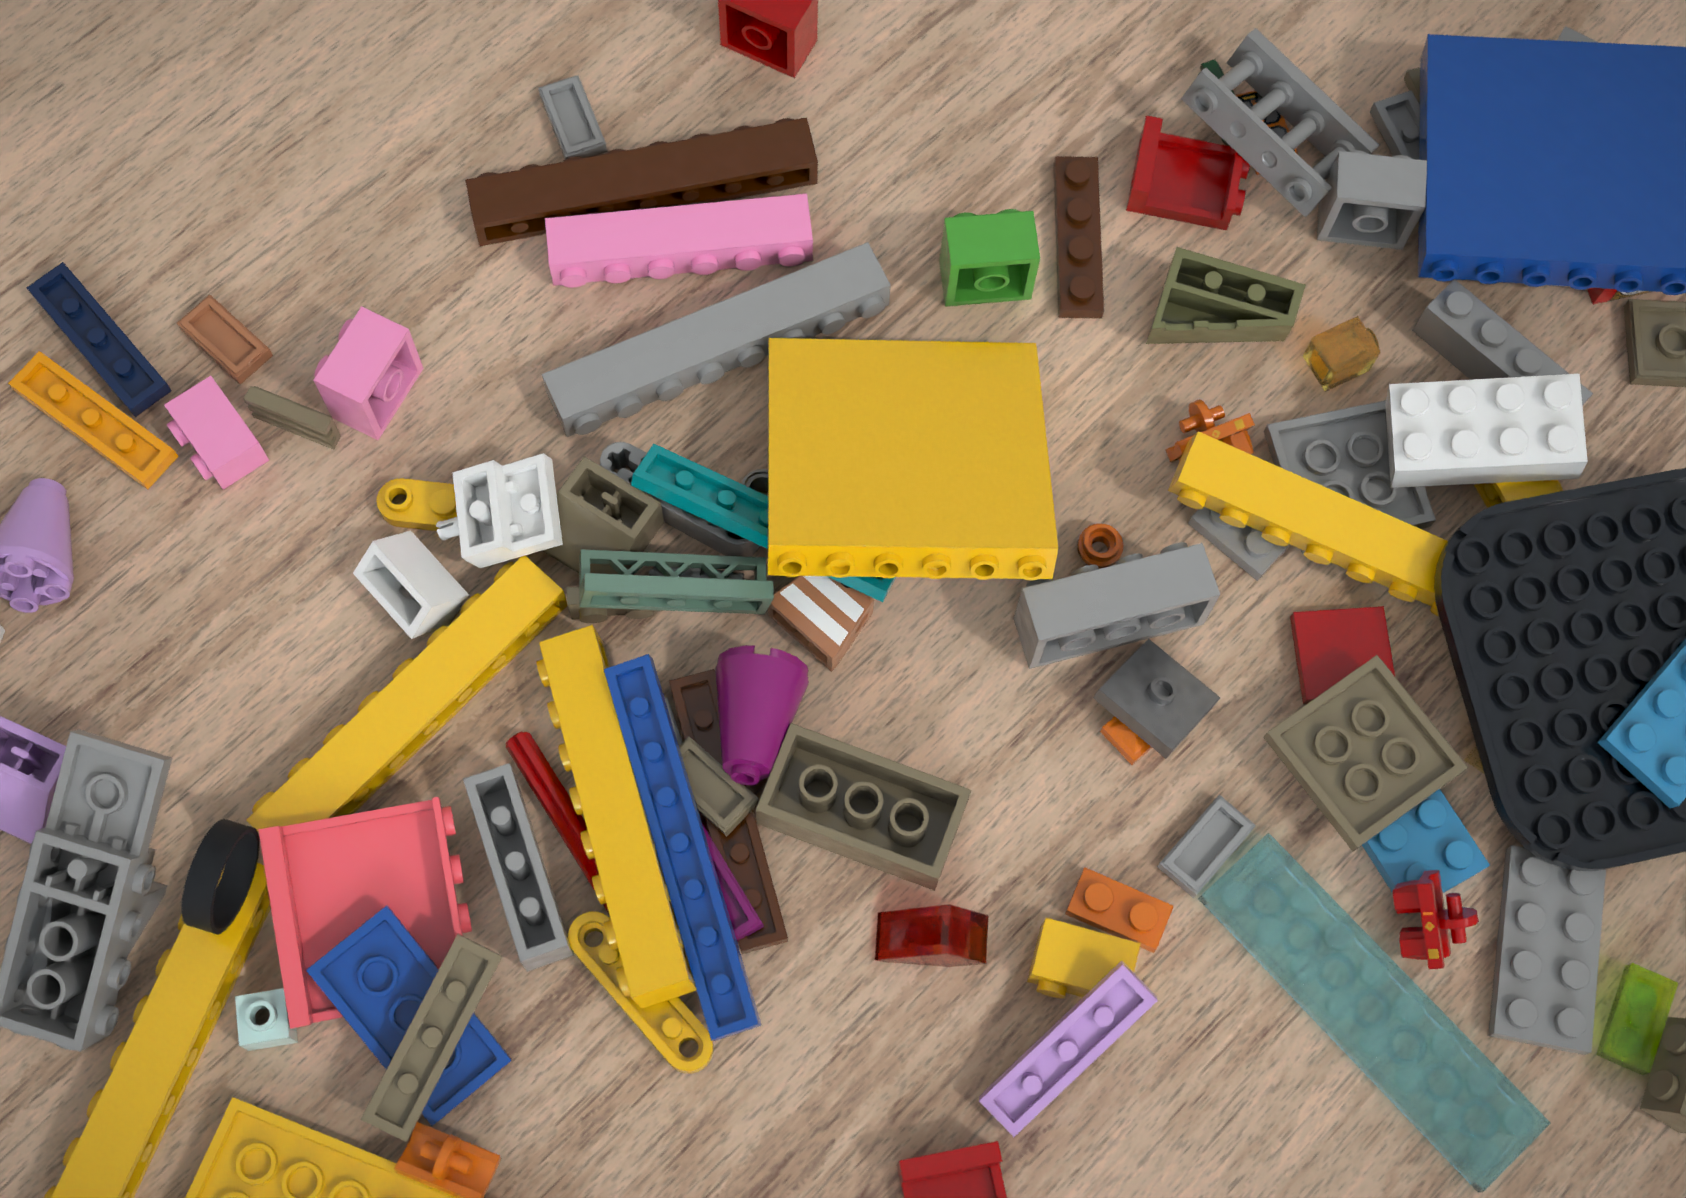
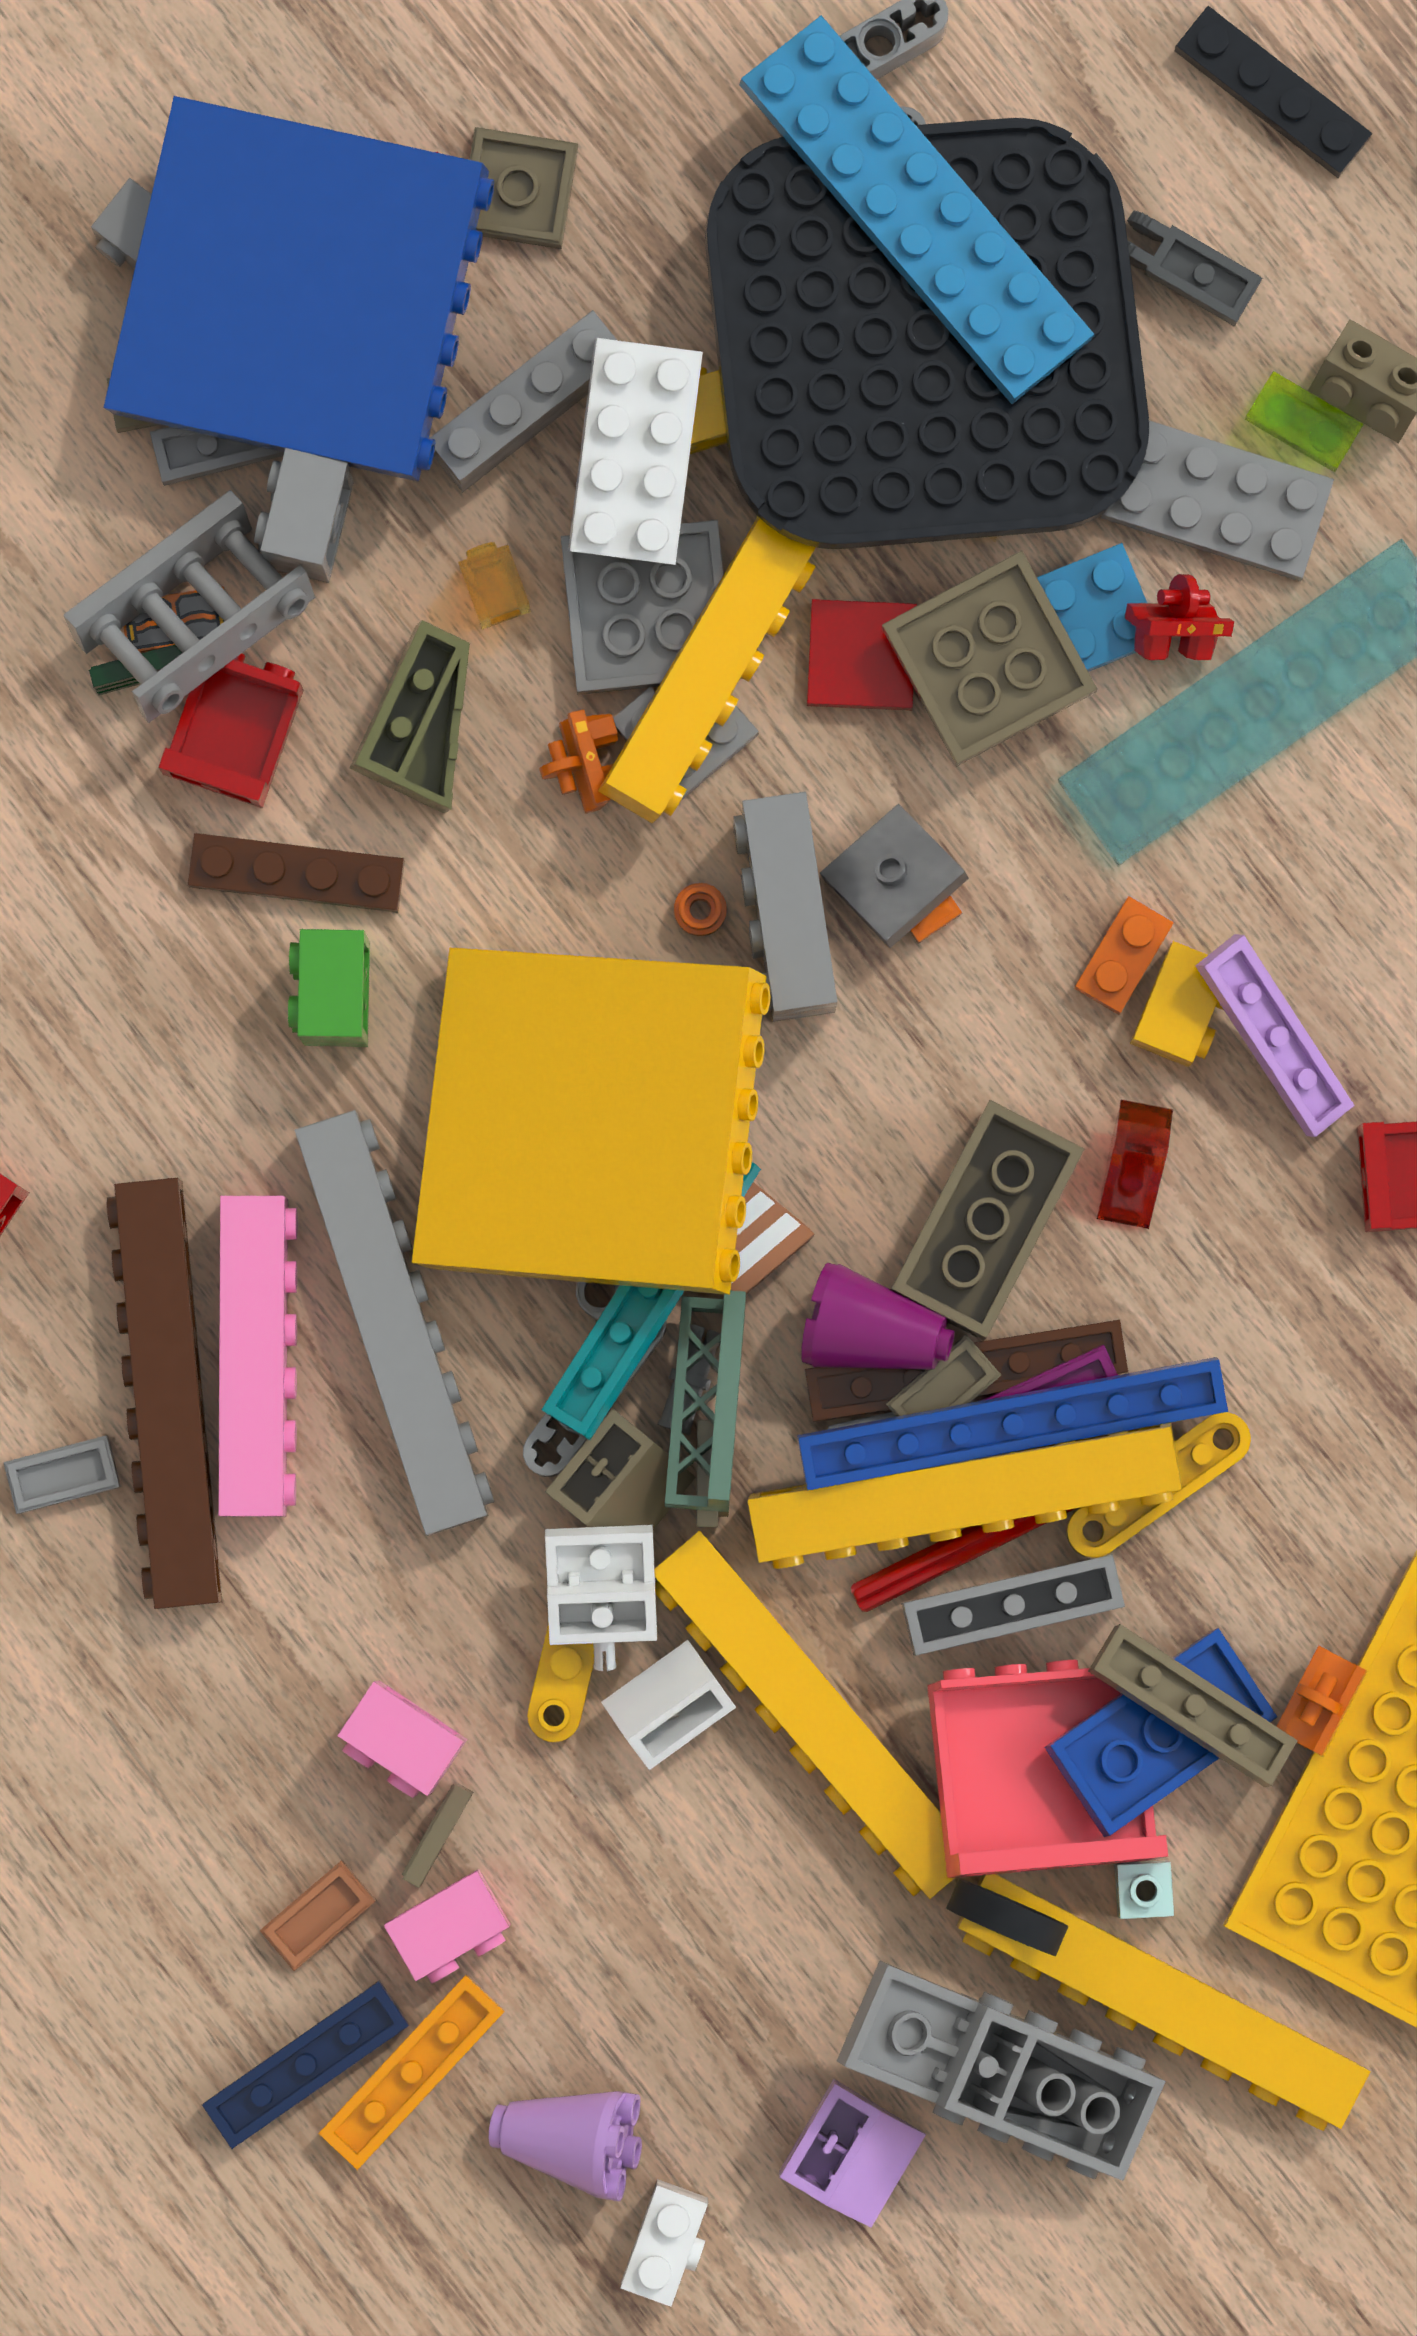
camera: 80 degrees left, 15 degrees up
(1206, 846) = (1063, 847): light grey tile -> none

